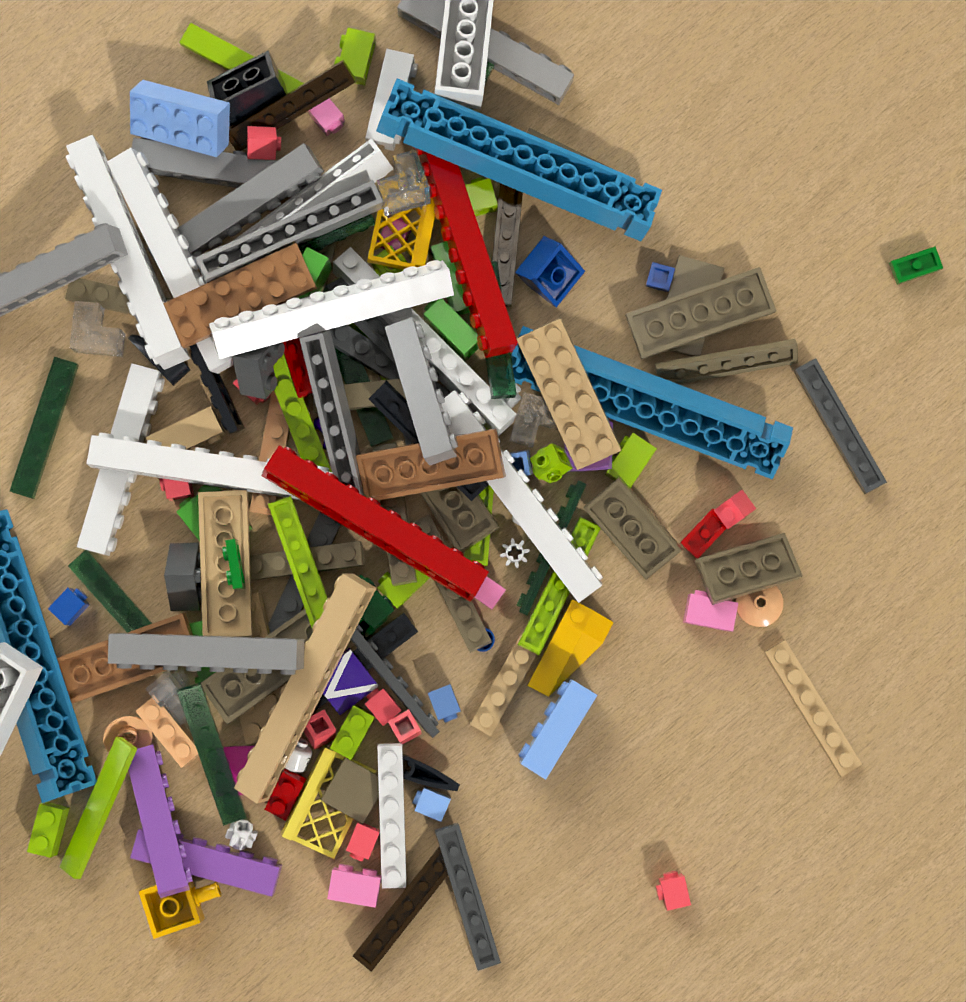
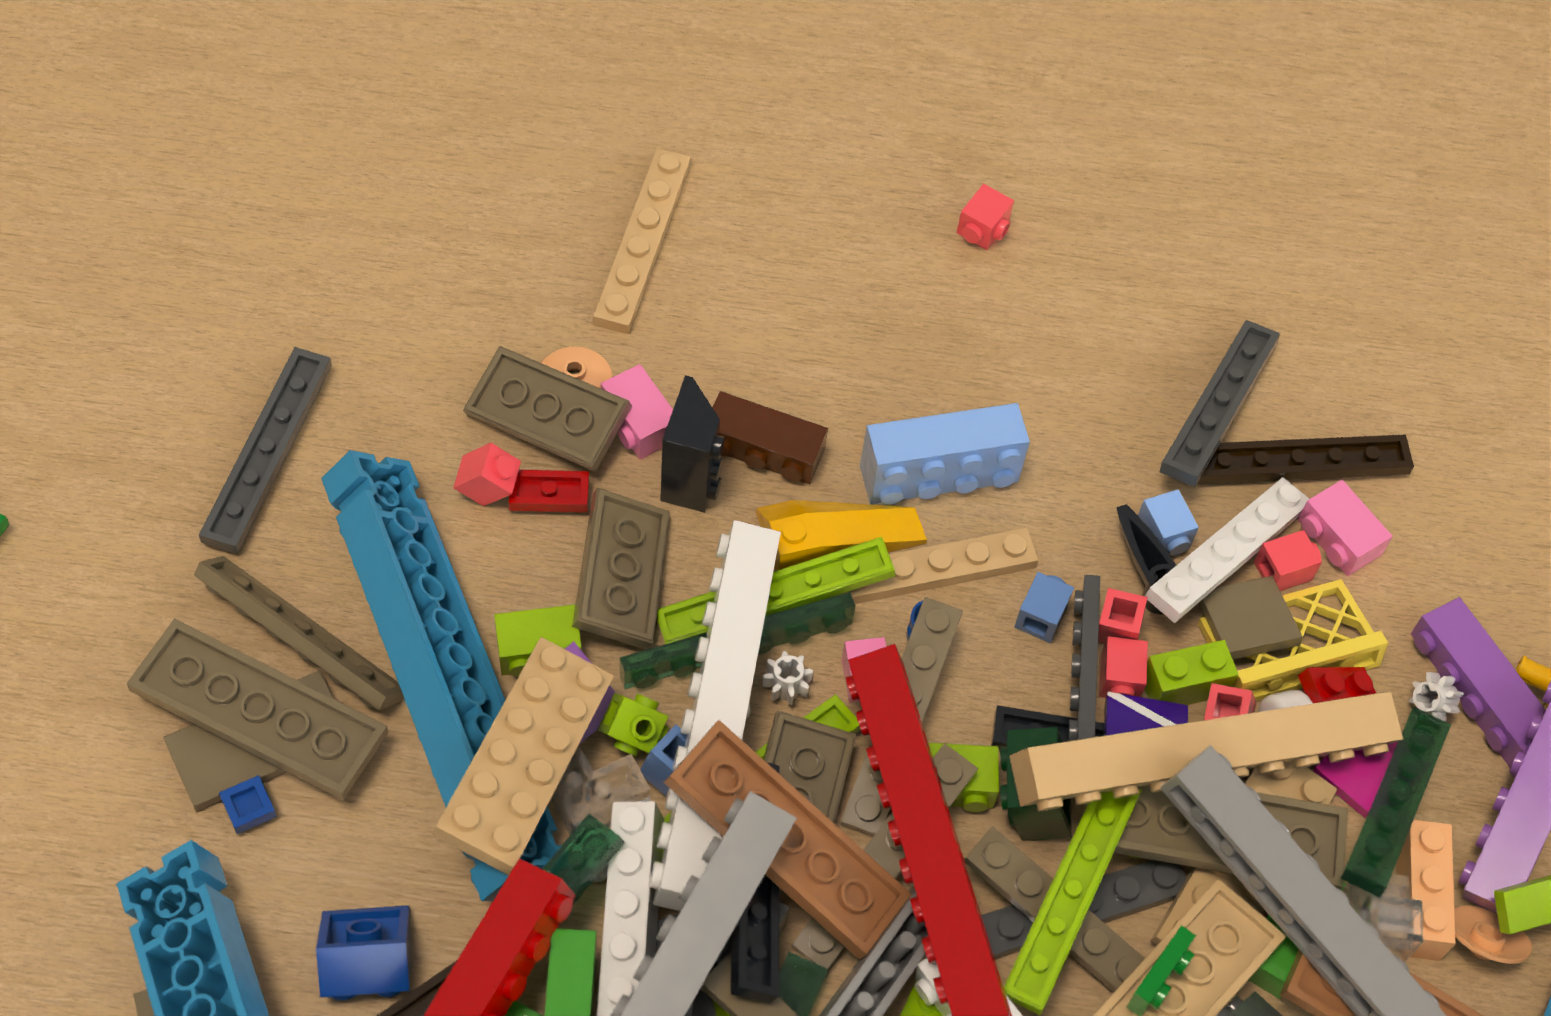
camera: 140 degrees left, 25 degrees down
(644, 657) = (770, 438): none -> reddish brown brick
(661, 606) = (691, 451): none -> black slope

